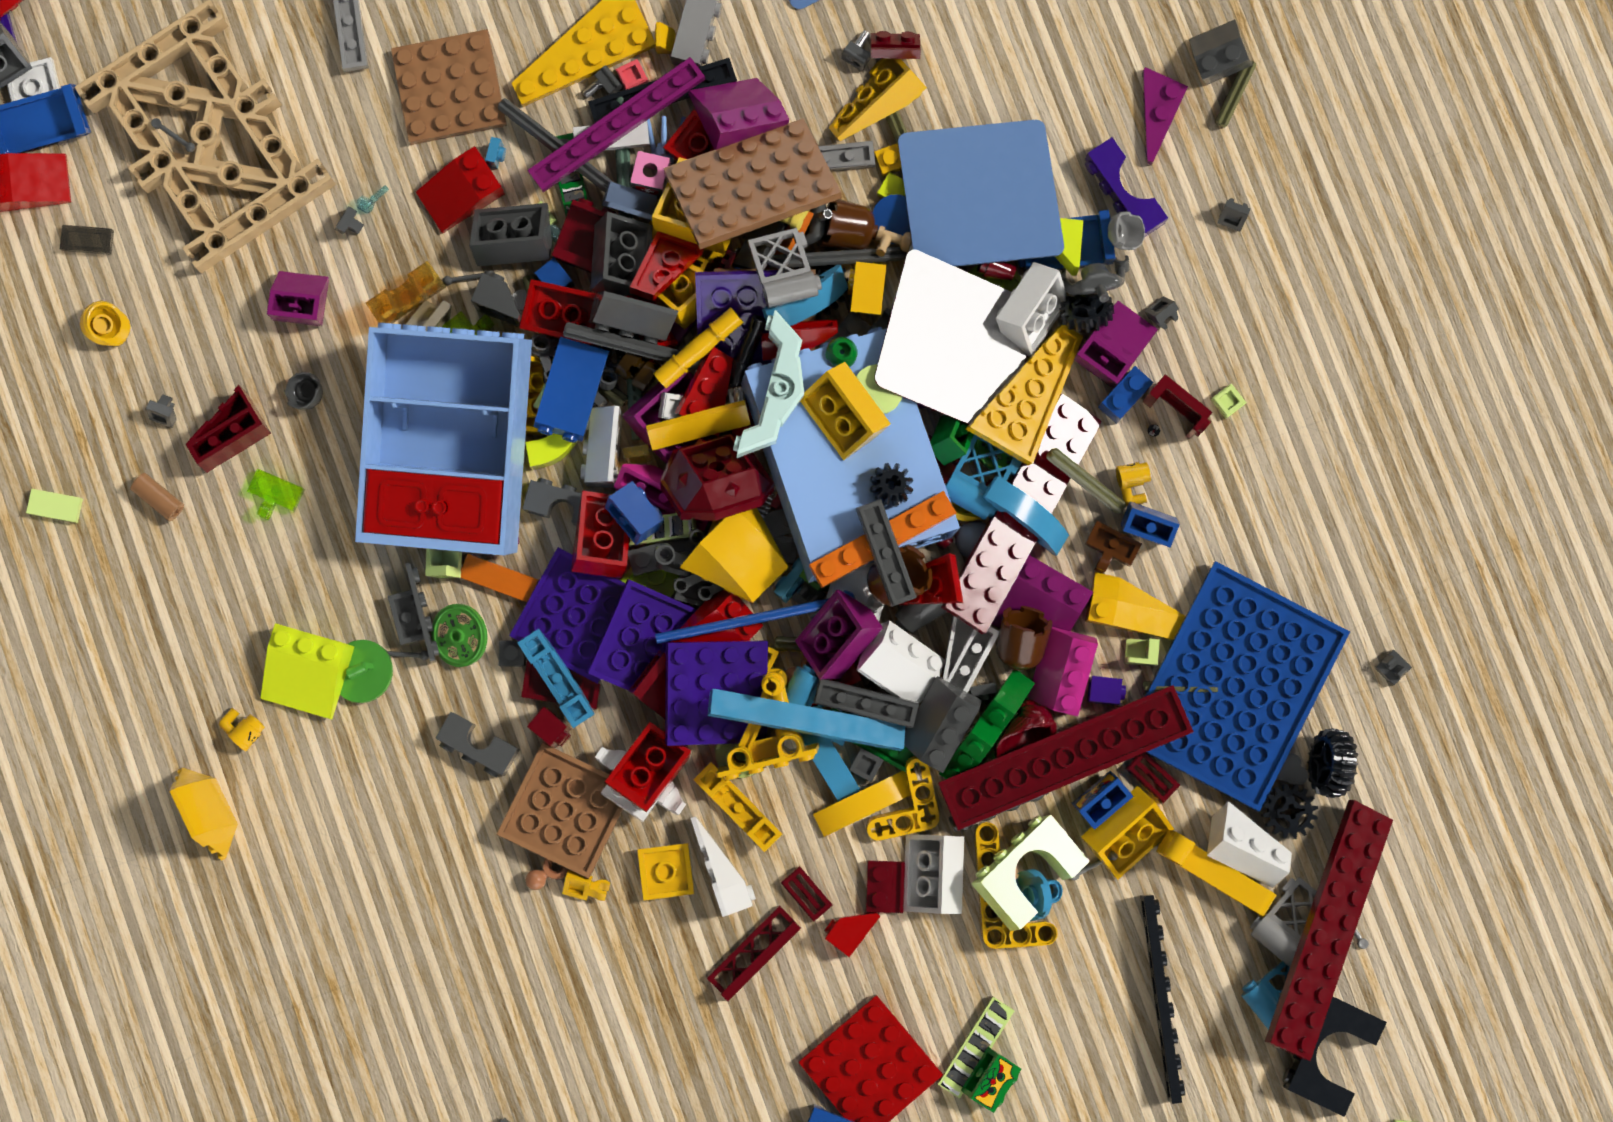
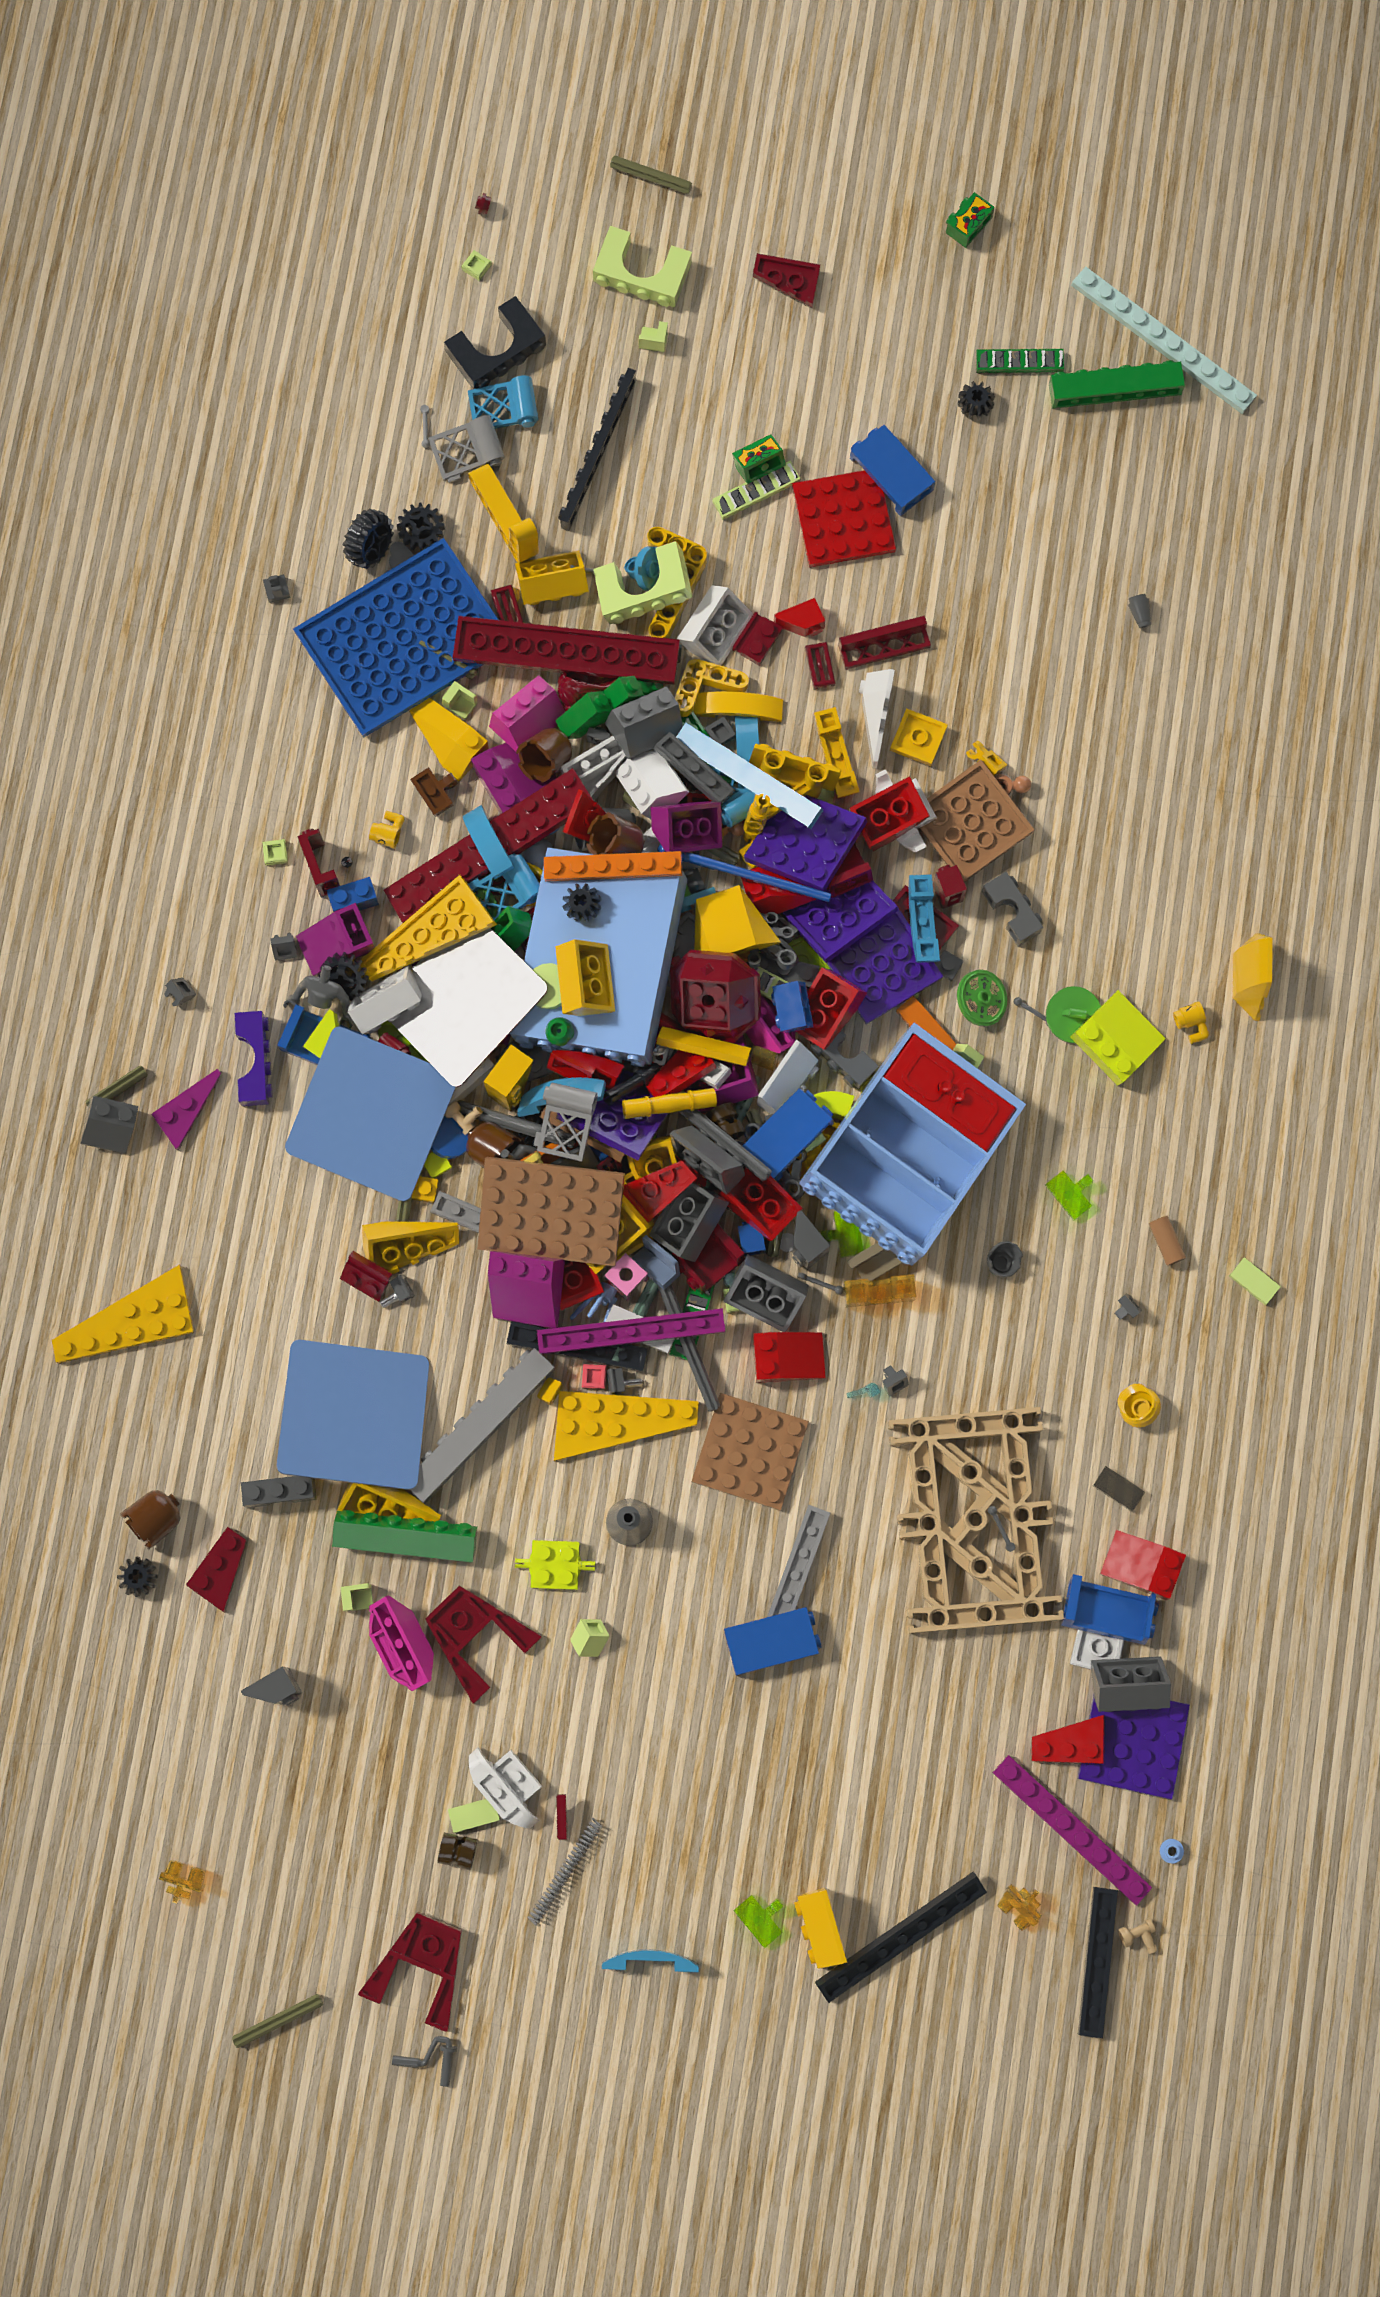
camera: 150 degrees left, 5 degrees down
(228, 431) = (1081, 1258): dark red wedge -> none
(298, 298) = (968, 1338): magenta slope -> none
(410, 617) = (1013, 1034): dark grey bracket -> none
(495, 153) = (741, 1370): dark azure plate -> none
(783, 392) = (623, 1020): light aqua helmet -> none
(886, 553) = (617, 849): dark grey tile -> none
(1085, 480) = (424, 846): olive axle -> none
(1102, 799) = (557, 607): blue brick -> none
(1105, 690) = (503, 685): dark purple brick -> none
(1126, 231) = (275, 1017): light grey hair -> none
(1149, 524) = (395, 788): blue brick -> none
(1247, 847) = (469, 517): white wedge -> none
(1329, 930) = (445, 425): dark red plate -> none

